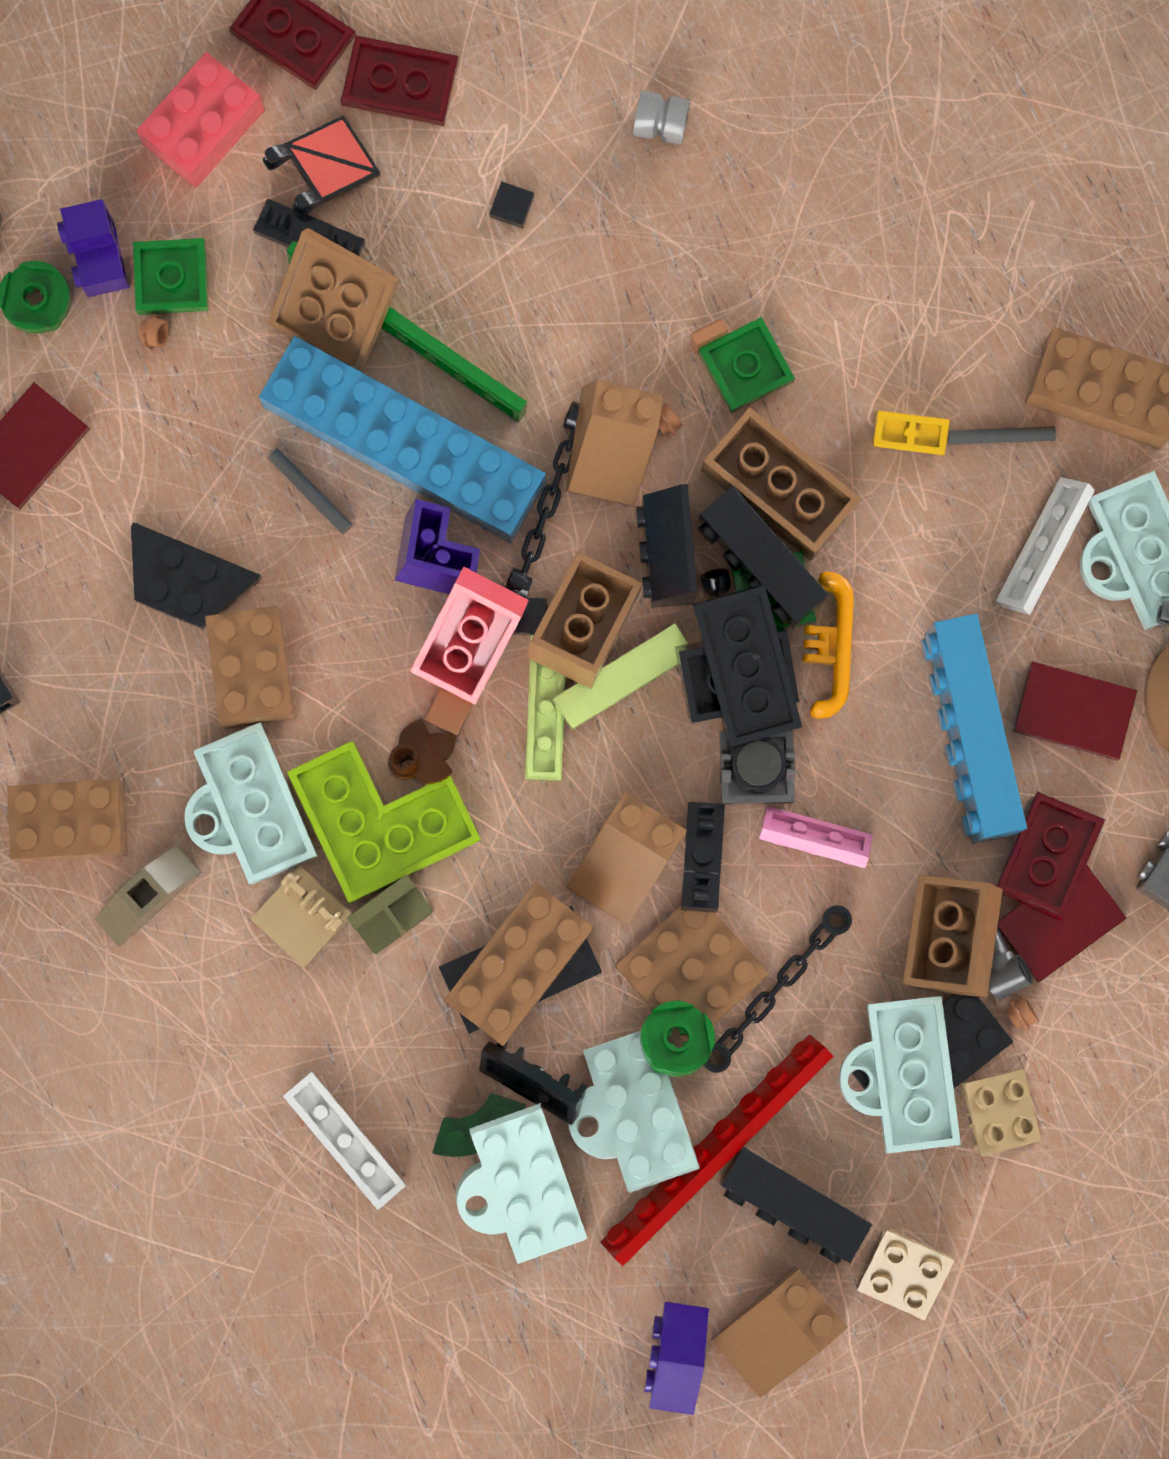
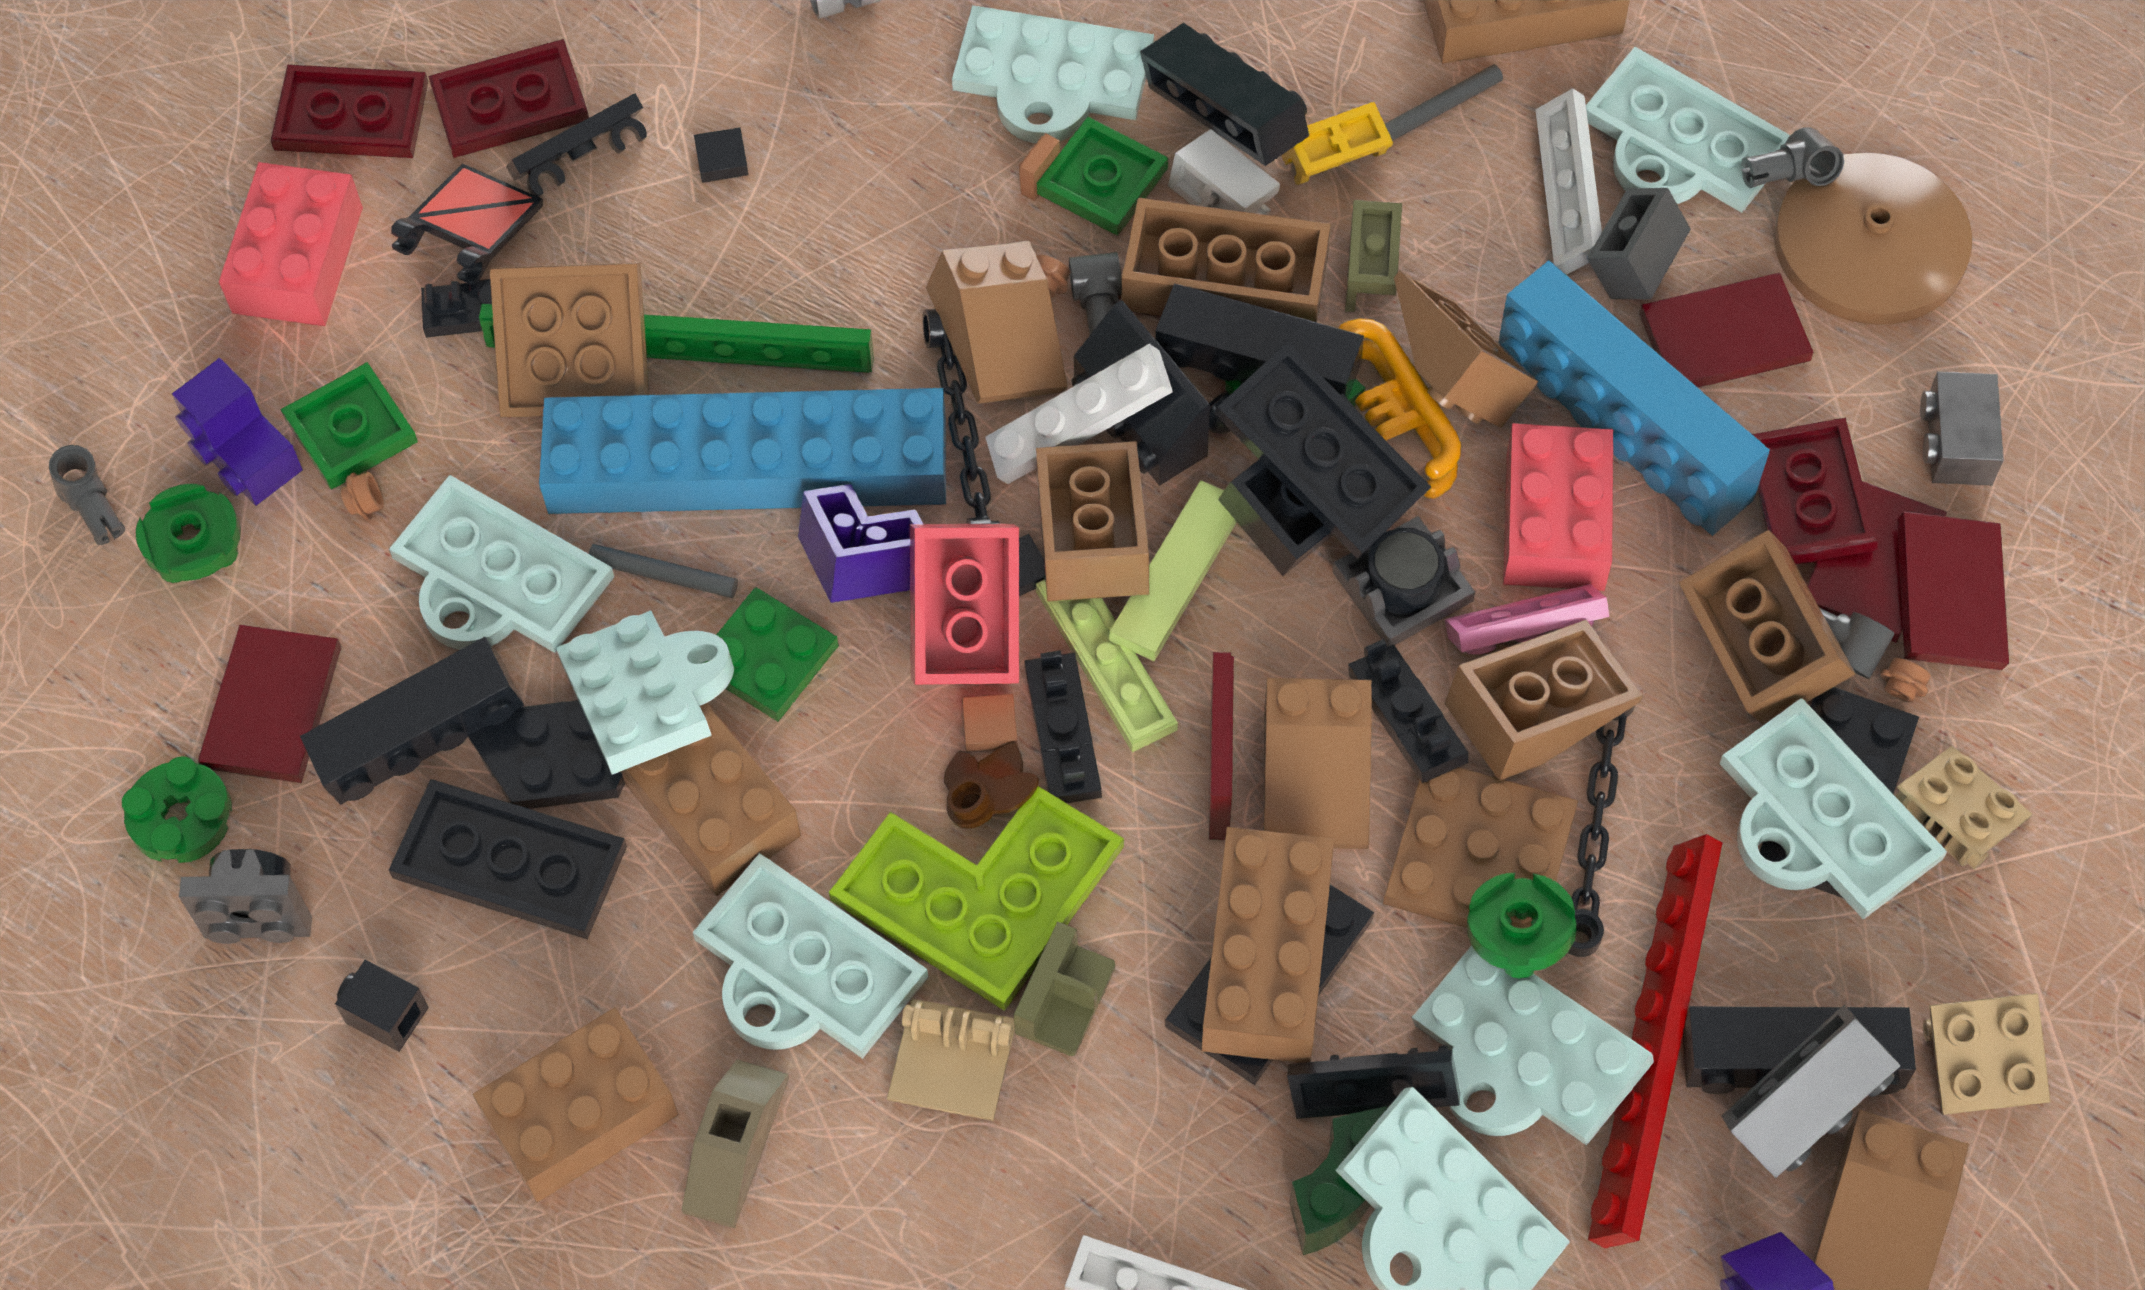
camera: 25 degrees left, 20 degrees down
(100, 515) = (412, 721): none -> black brick
(112, 636) = (508, 858): none -> black plate
(208, 434) = (496, 570): none -> light aqua plate
(247, 575) = (645, 687): none -> light aqua plate
(341, 586) = (773, 652): none -> green plate
(422, 144) = (578, 143): none -> black plate
(491, 741) = (1063, 727): none -> black plate
(571, 818) = (1221, 745): none -> dark red tile
(620, 541) = (1080, 412): none -> white plate
(693, 445) = (1096, 284): none -> dark grey pin
(763, 261) = (1050, 70): none -> light aqua plate
(777, 1242) = (1811, 1092): none -> brick
(788, 897) = (1539, 697): none -> medium nougat slope
(820, 416) = (1221, 177): none -> white hinge
(857, 357) = (1225, 93): none -> black brick
(881, 527) = (1373, 249): none -> olive panel
(884, 774) = (1558, 506): none -> coral brick
(887, 633) = (1460, 356): none -> medium nougat slope
(1056, 621) = (1639, 243): none -> dark grey brick
(1091, 973) = (1952, 591): none -> dark red tile

